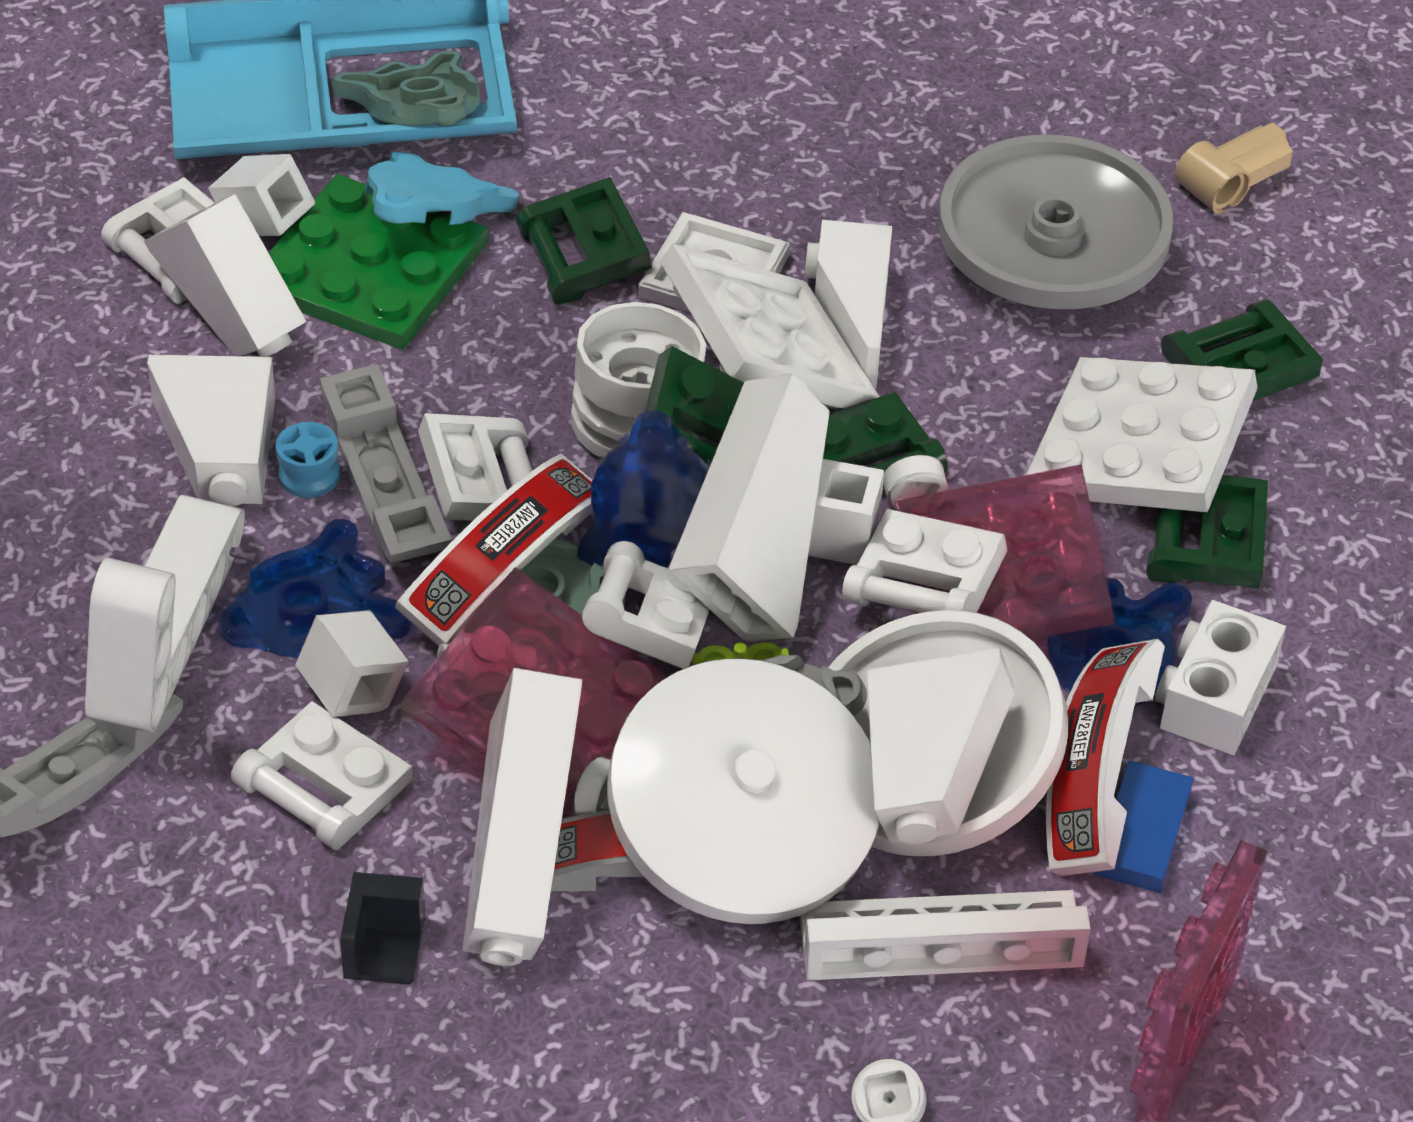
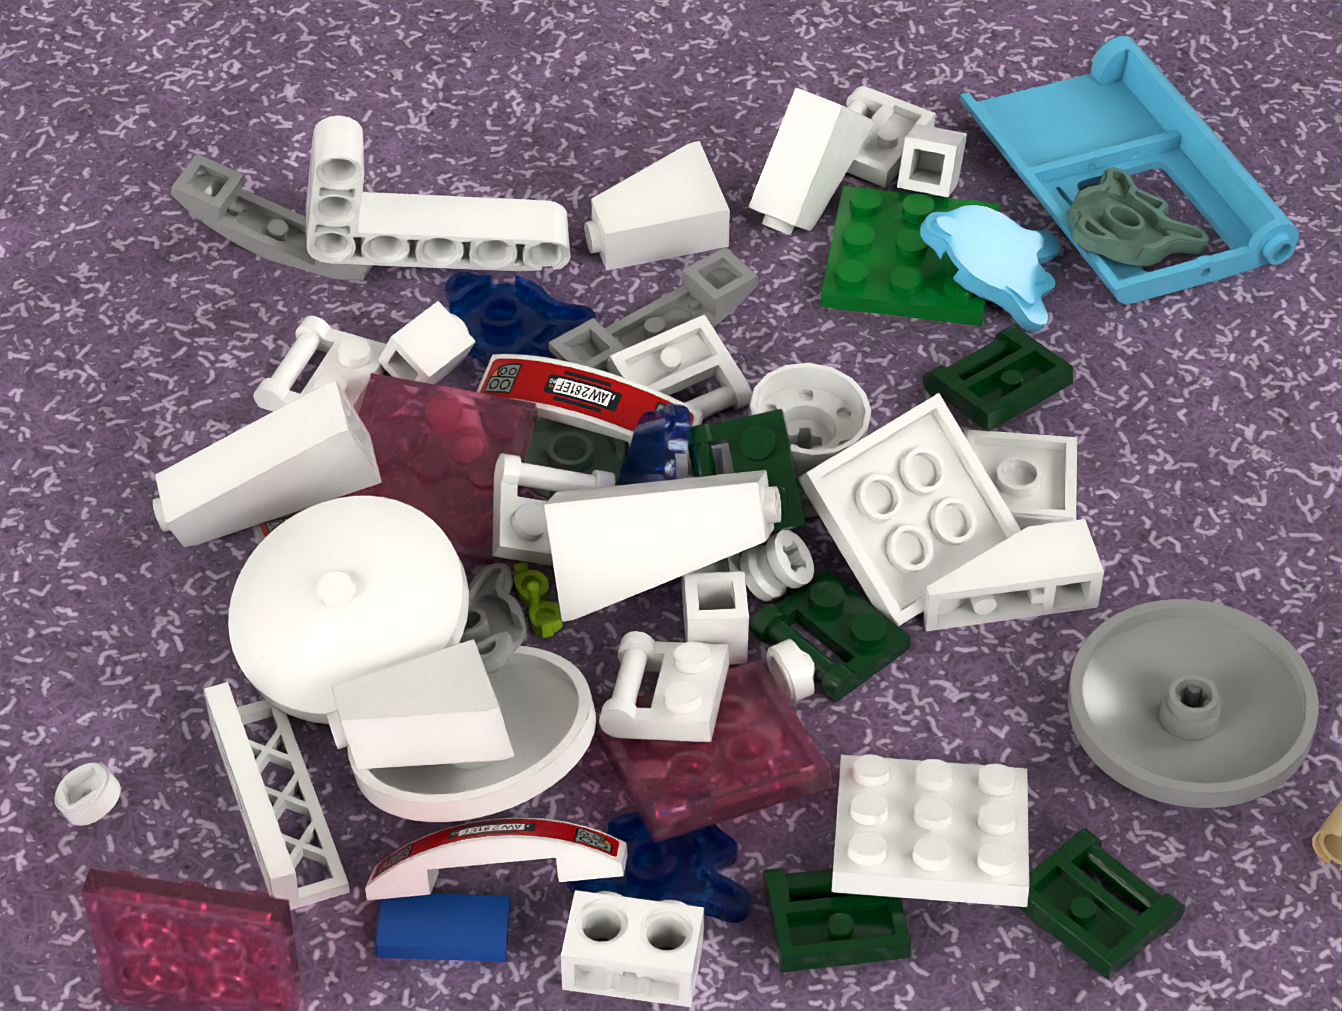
camera: 75 degrees right, 0 degrees up
(308, 459) = (648, 272): dark azure wheel -> none
(382, 928) = (166, 434): black panel -> none

